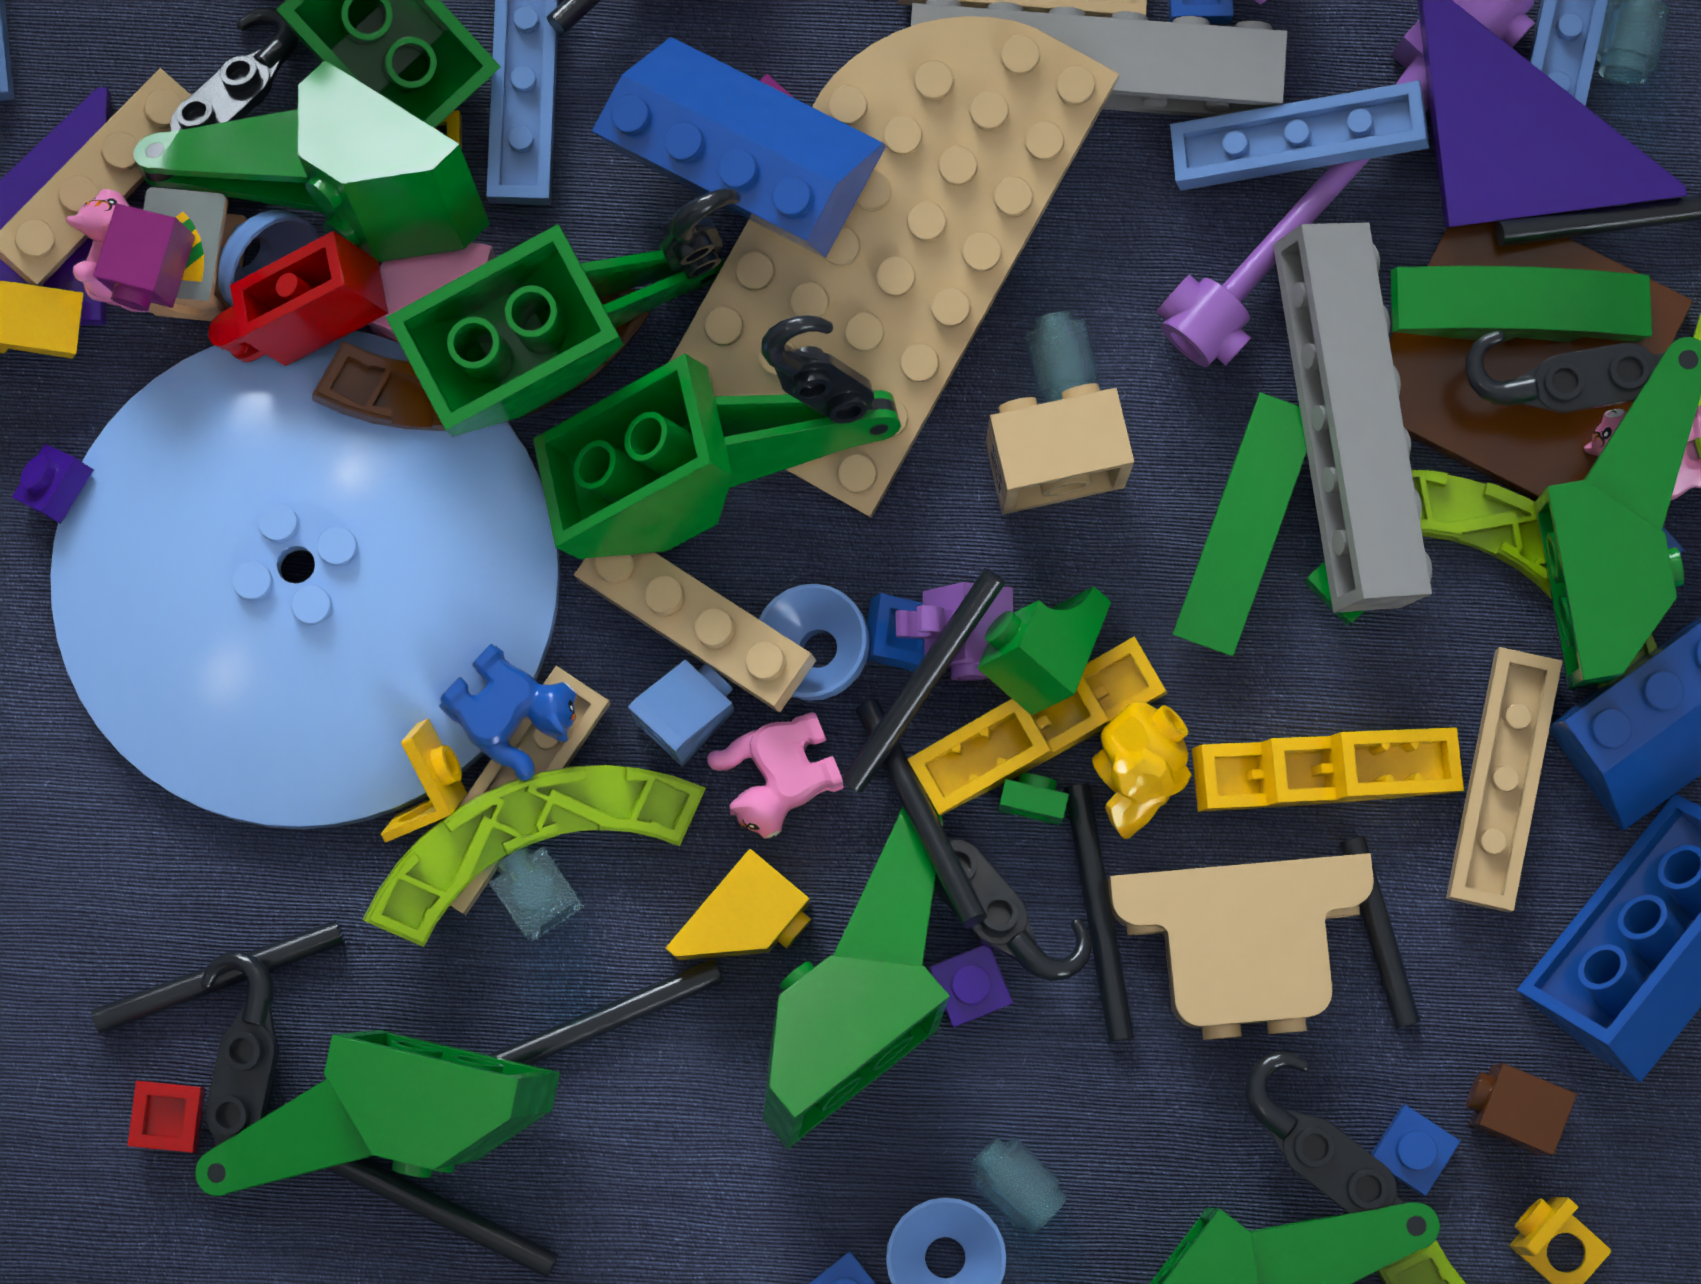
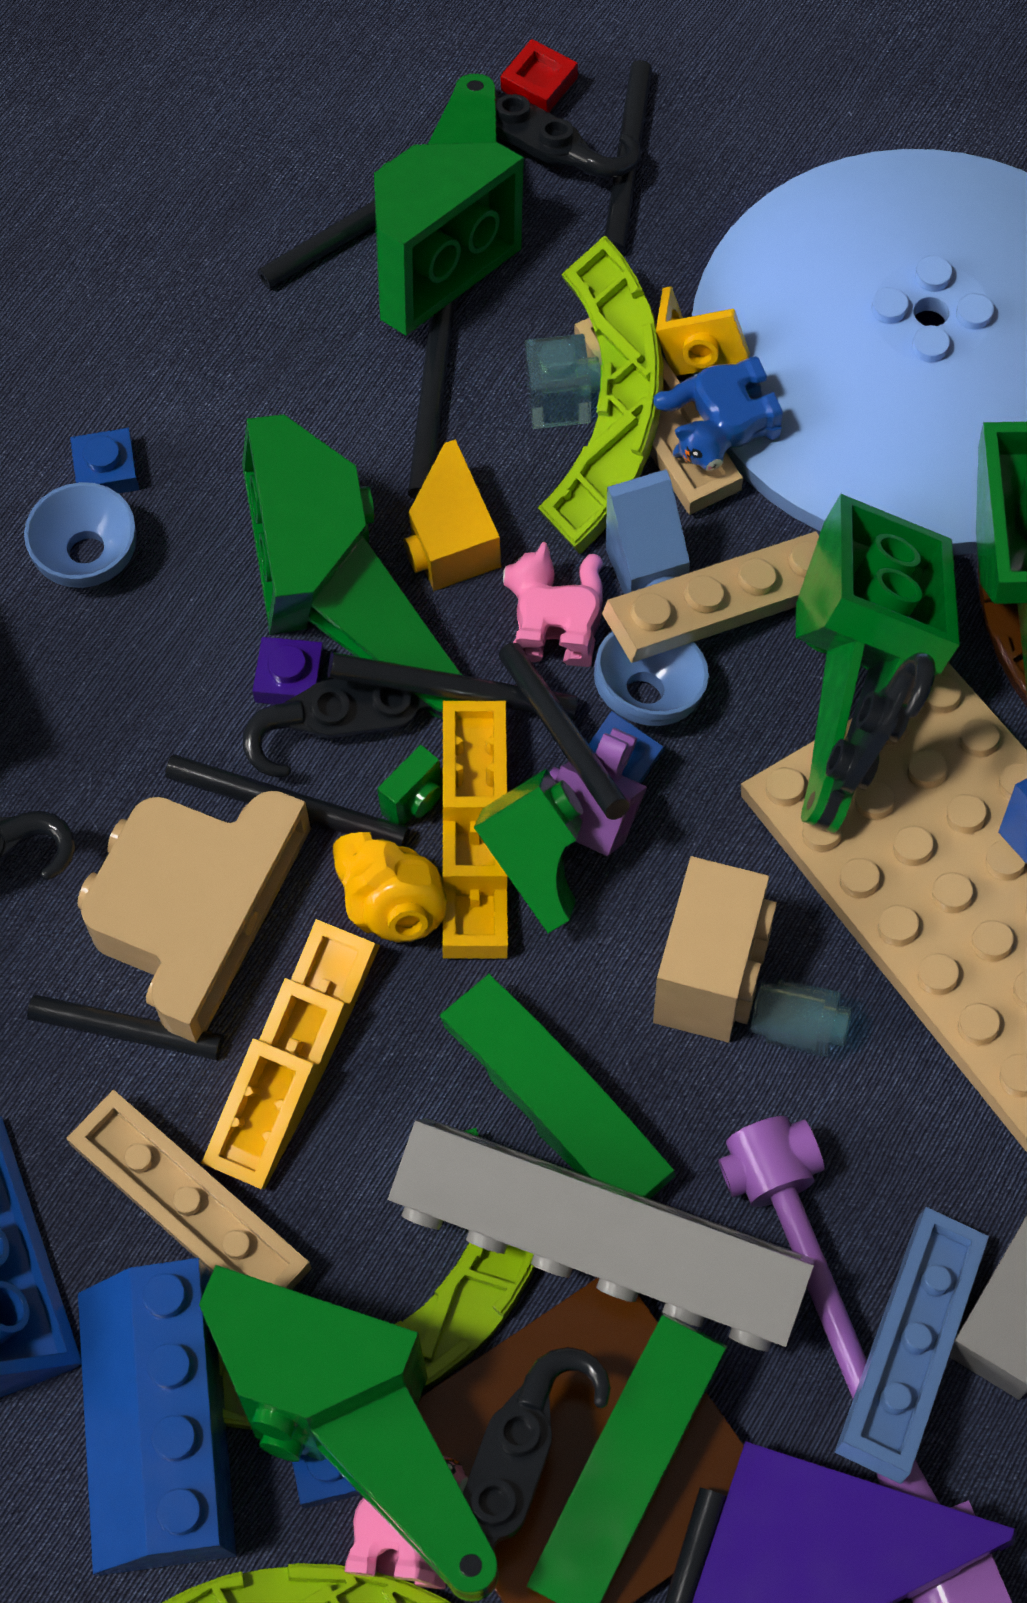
camera: 120 degrees right, 15 degrees down
(1017, 1184) = (104, 621): clear light blue brick -> none

